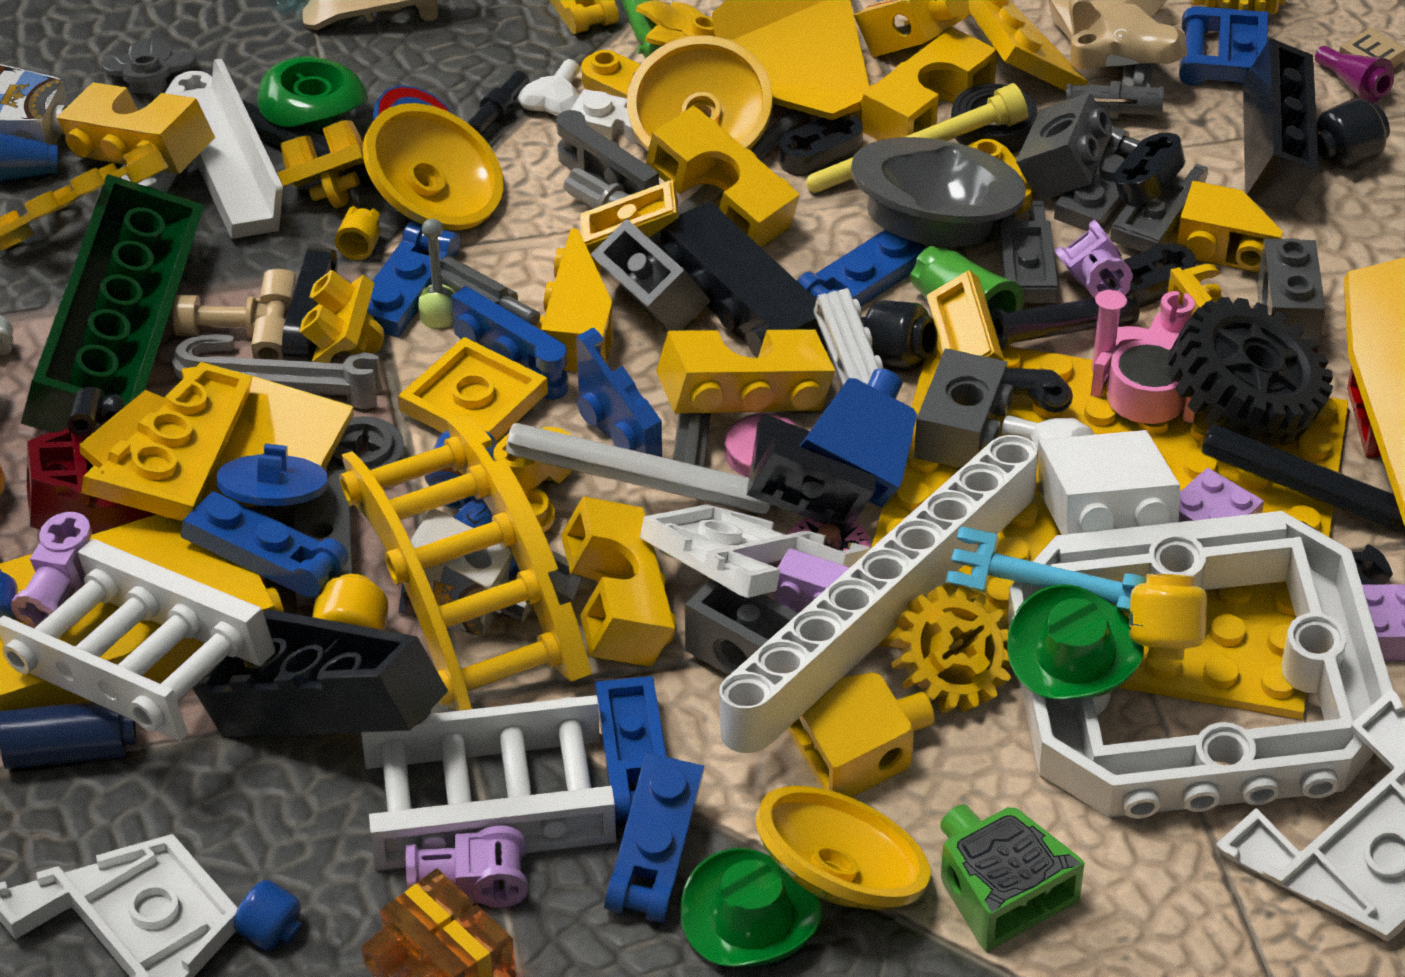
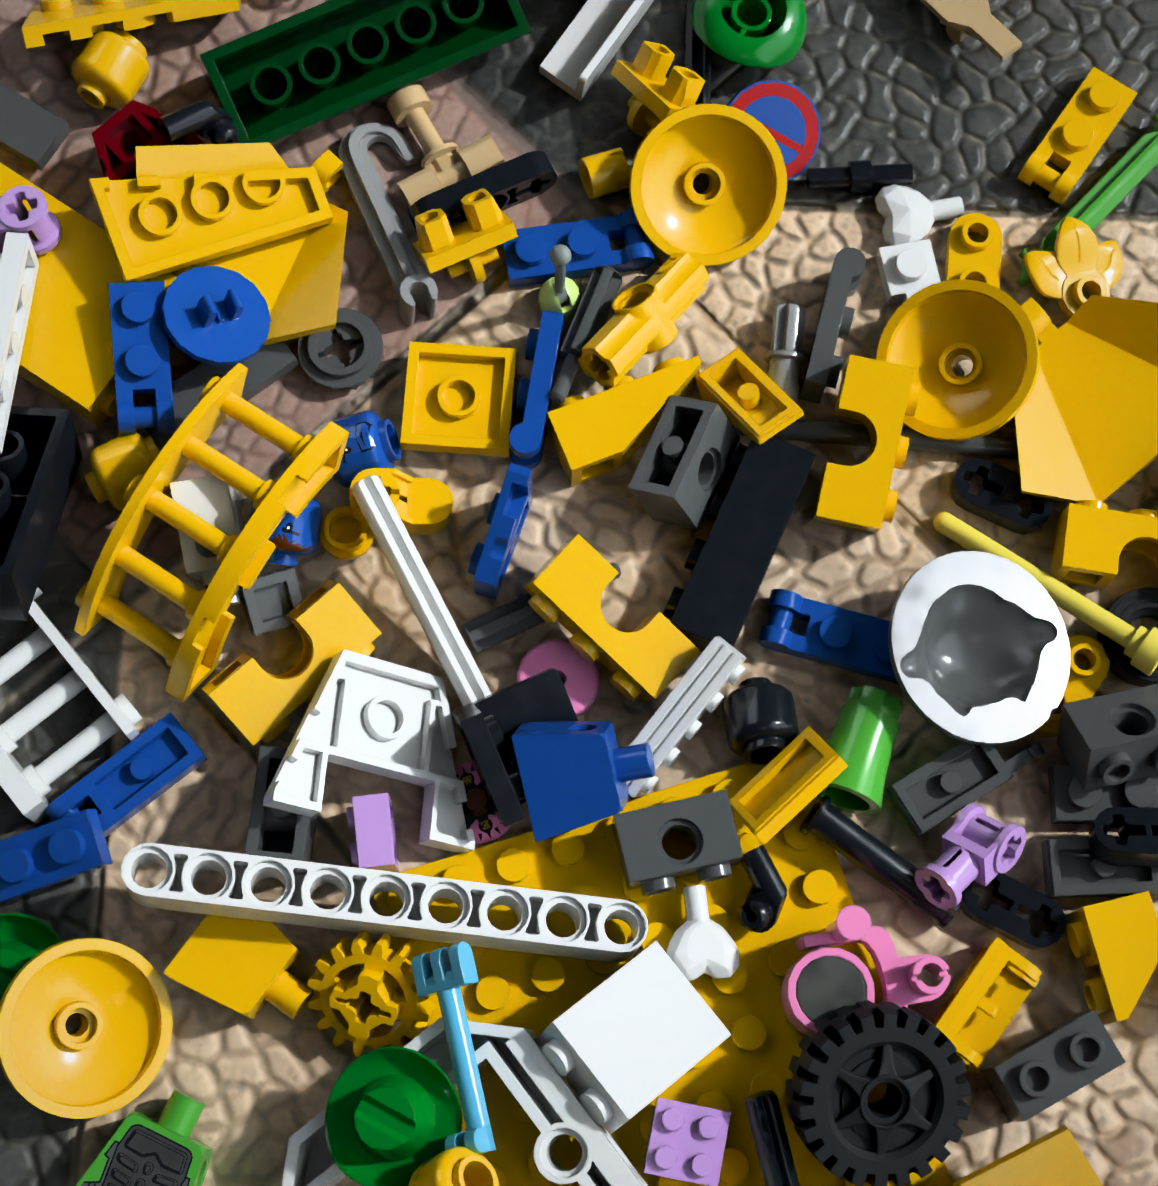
camera: 55 degrees right, 30 degrees up
(510, 249) = (643, 319): none -> yellow piece

